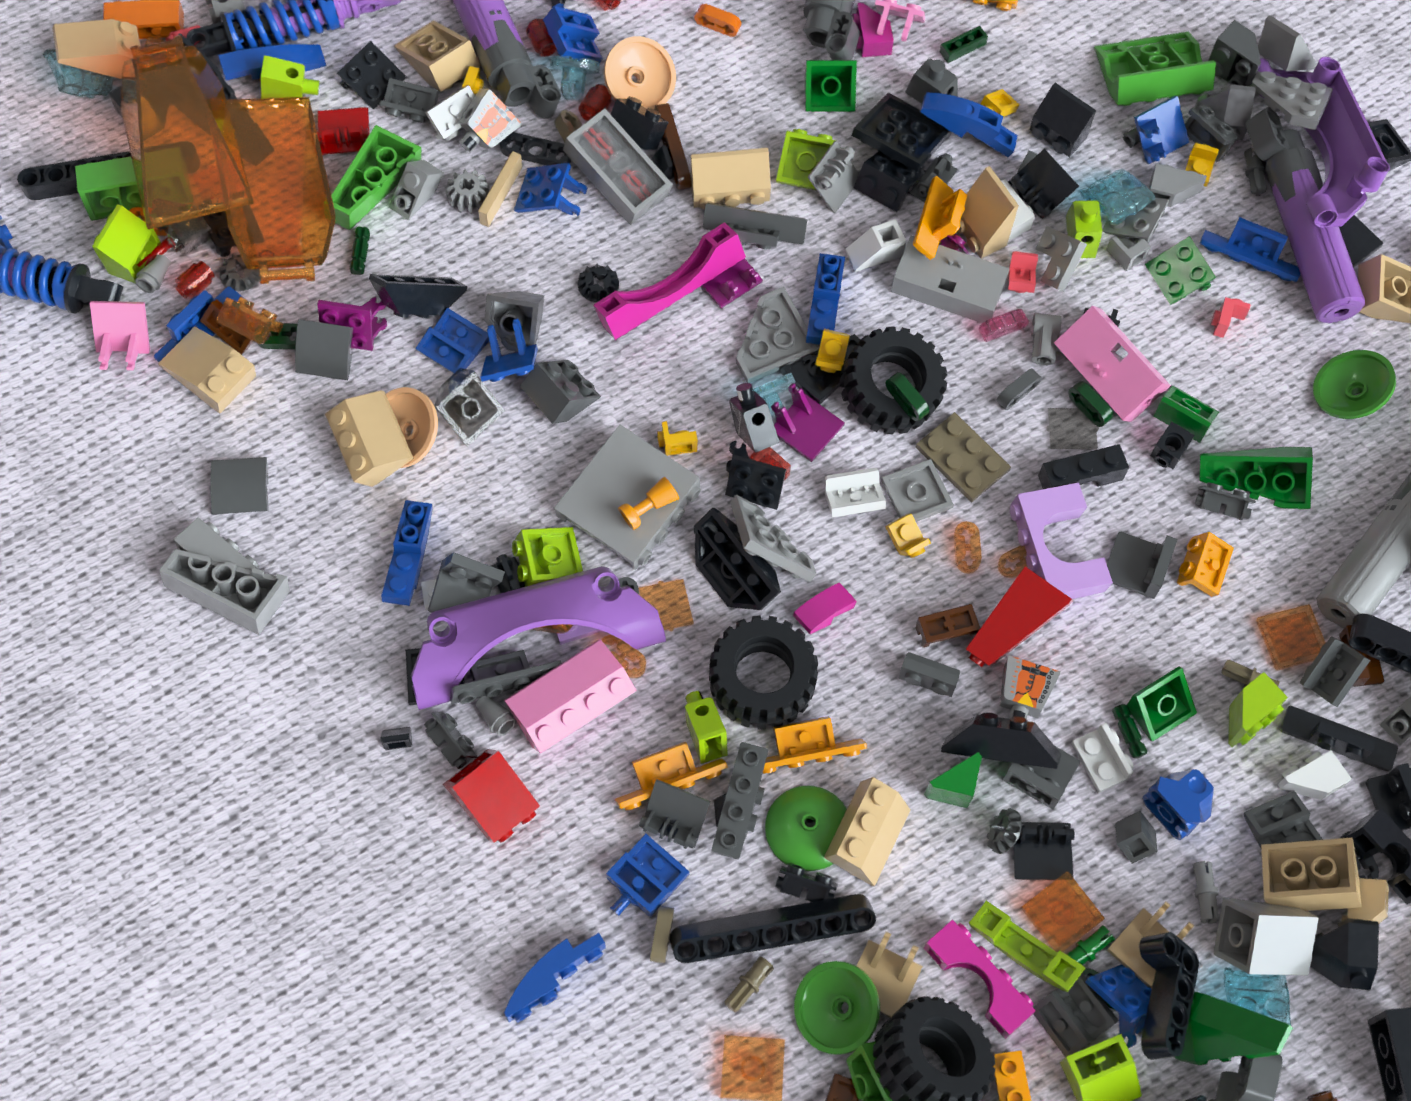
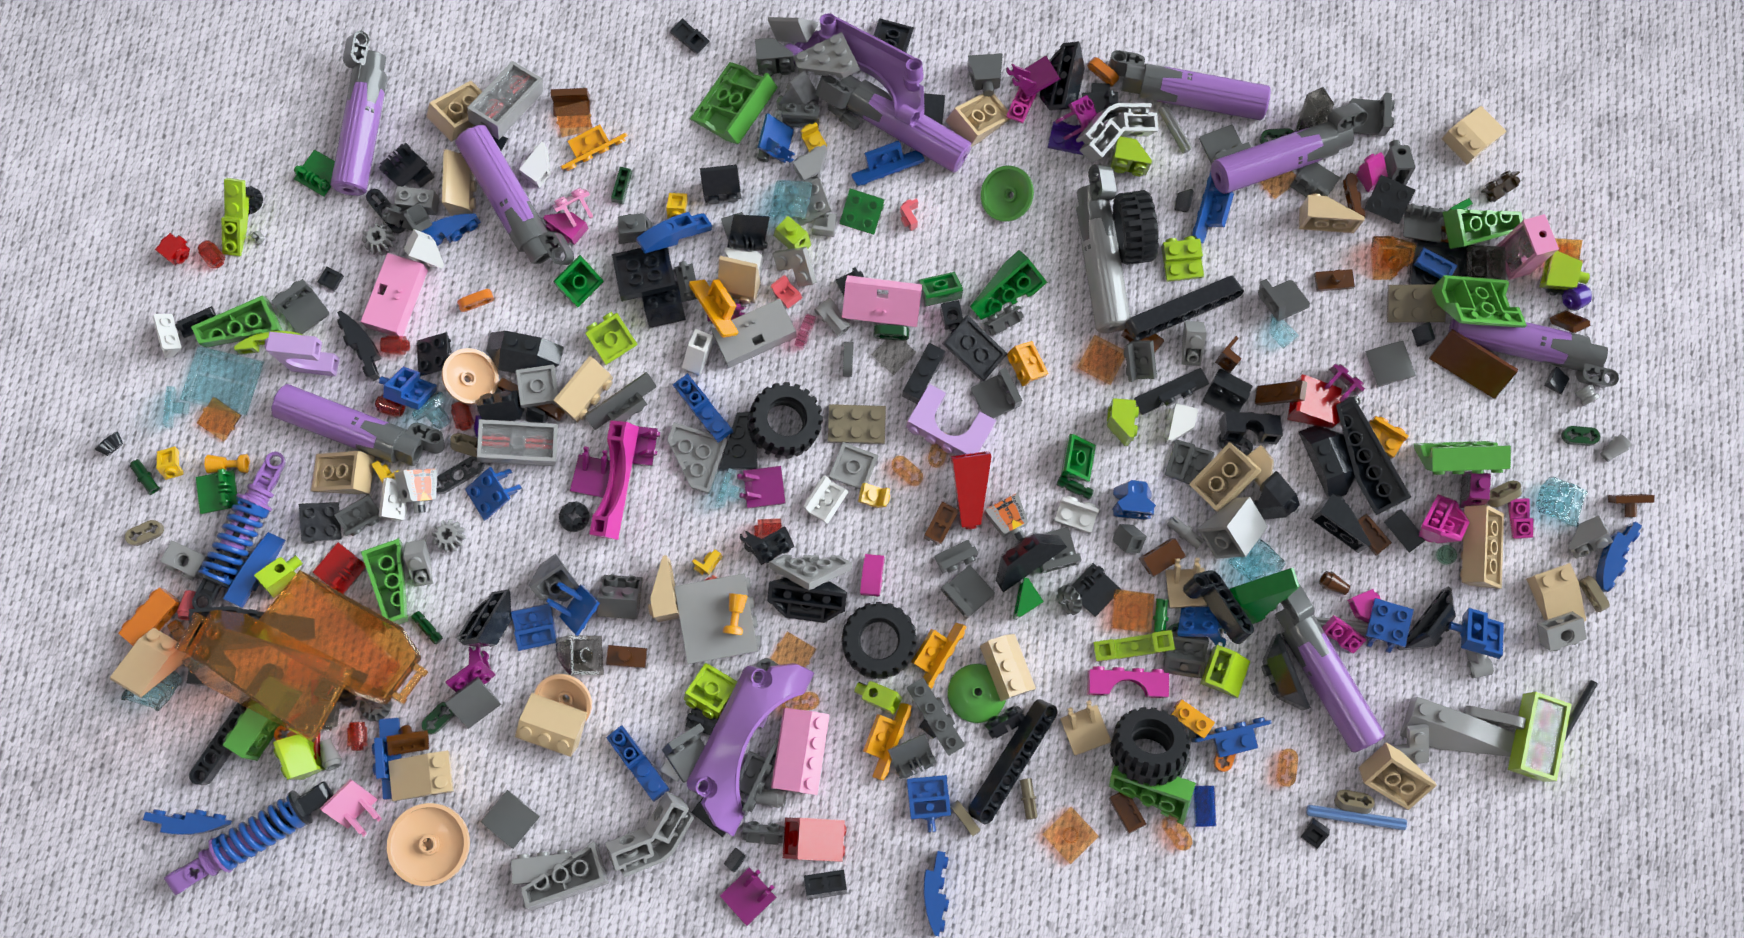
camera: 45 degrees left, 10 degrees up
(144, 431) = (428, 844): none -> light nougat dish
(248, 321) = (416, 729): clear orange bracket -> none
(314, 624) = (666, 824): none -> light grey brick
(370, 783) = (748, 896): none -> magenta plate
(453, 850) = (825, 884): none -> black hinge
(500, 189) = (465, 517): tan tile -> none
(506, 451) = (626, 656): none -> reddish brown tile
(599, 420) = (663, 596): none -> tan slope
(630, 25) = (433, 353): none -> black hinge
(655, 259) = (591, 474): none -> magenta plate
(690, 134) = (537, 385): none -> light grey tile
(712, 103) = (521, 351): none -> black wedge
(753, 419) = (730, 511): torso -> none
(820, 1007) = (1076, 777): bright green dish -> none
(832, 350) = (738, 435): yellow bracket -> none
(835, 175) = (636, 332): light grey hinge -> none
(905, 719) = (967, 591): none -> dark grey bracket
(907, 396) = (806, 426): dark green beam -> none
(1153, 889) = (1162, 557): none -> reddish brown hinge
(1163, 497) = (974, 348): none -> black tile
(1241, 673) = (1102, 402): dark tan axle -> none

